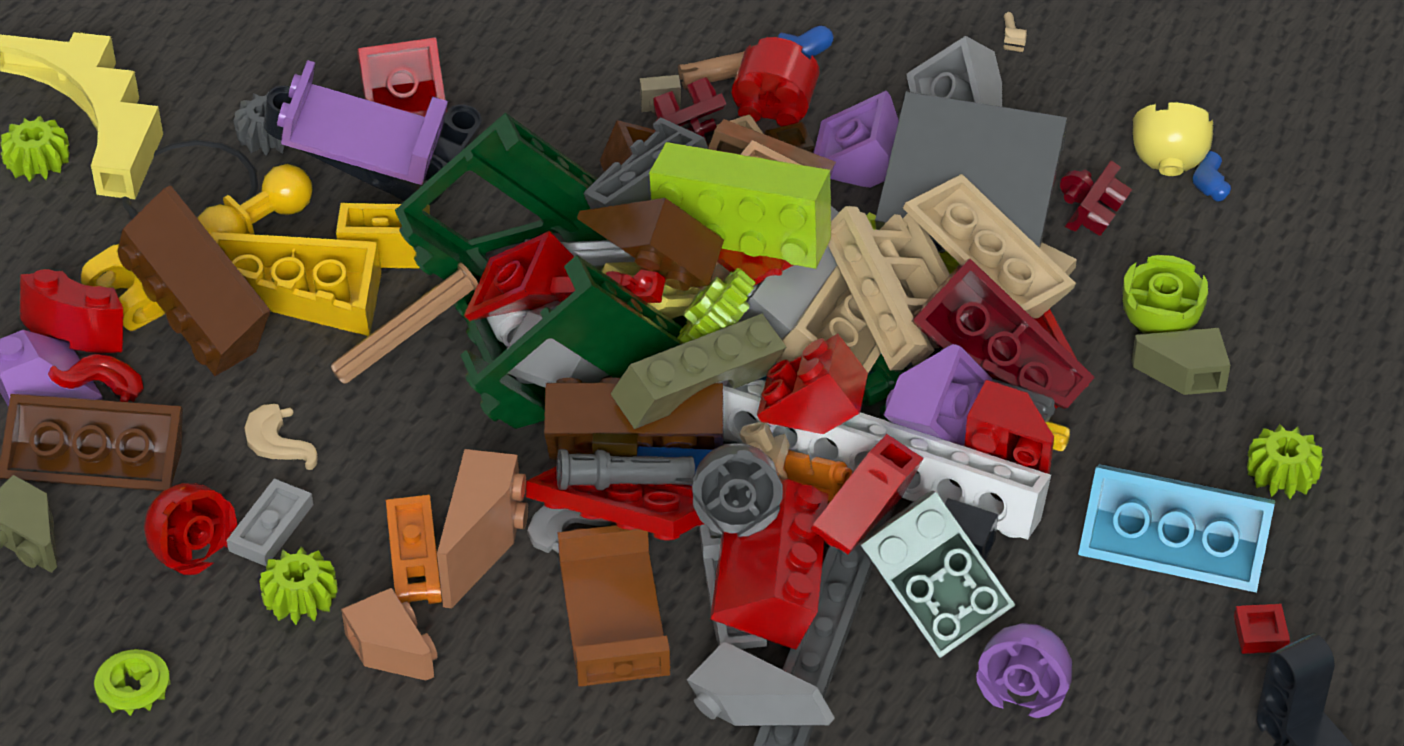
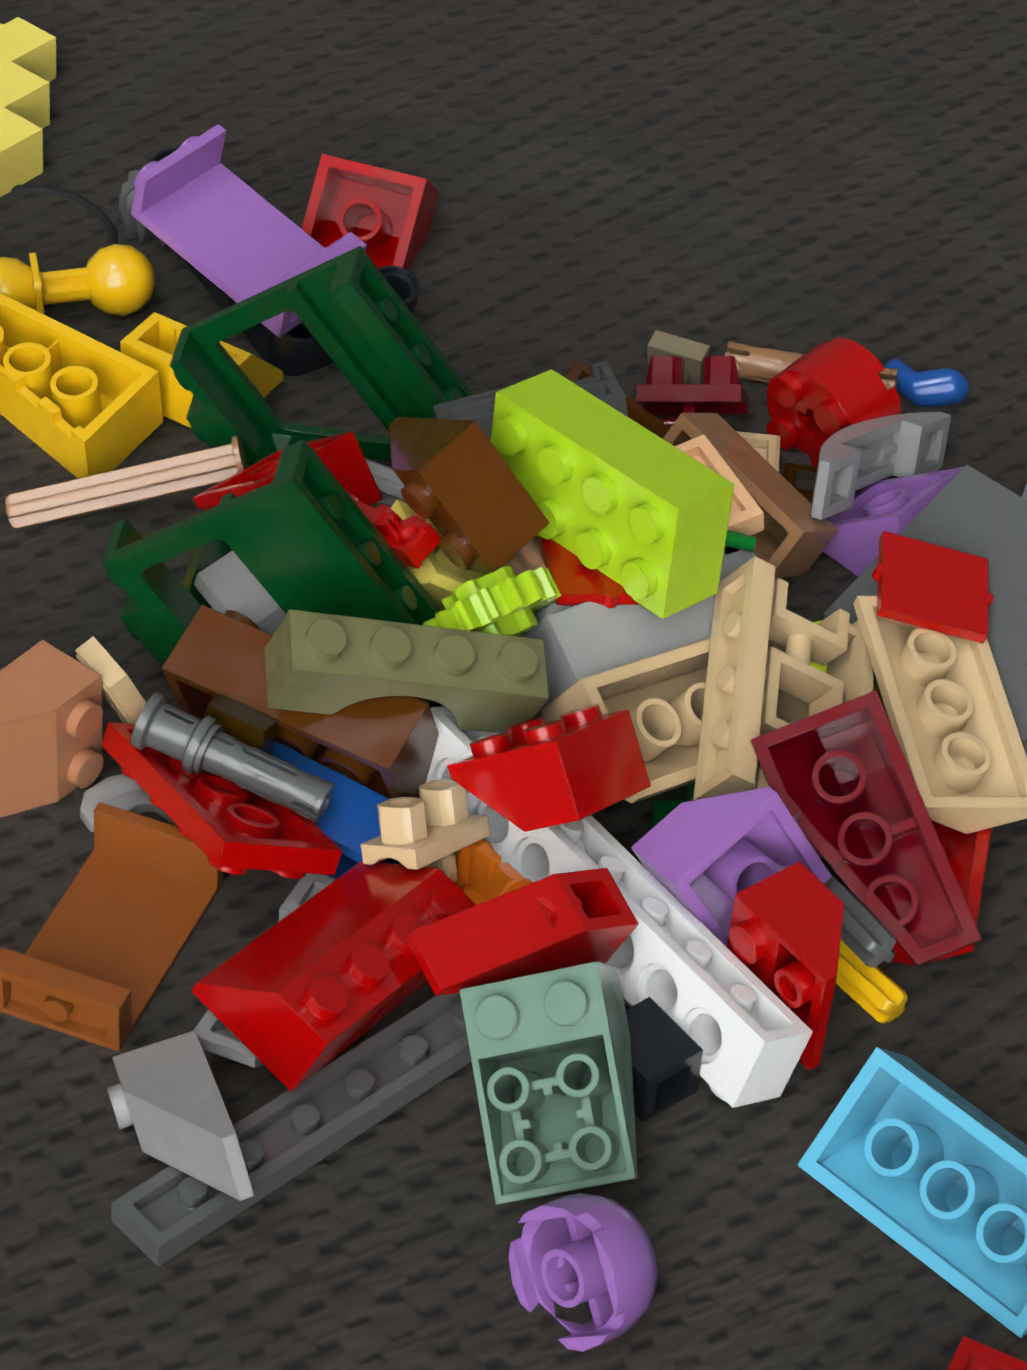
camera: 25 degrees right, 5 degrees down
(527, 459) = (116, 684): none -> tan tile
(737, 489) = (341, 841): dark grey cylinder -> none
(824, 94) = (874, 451): none -> light grey slope
(939, 177) = (932, 587): none -> red piece

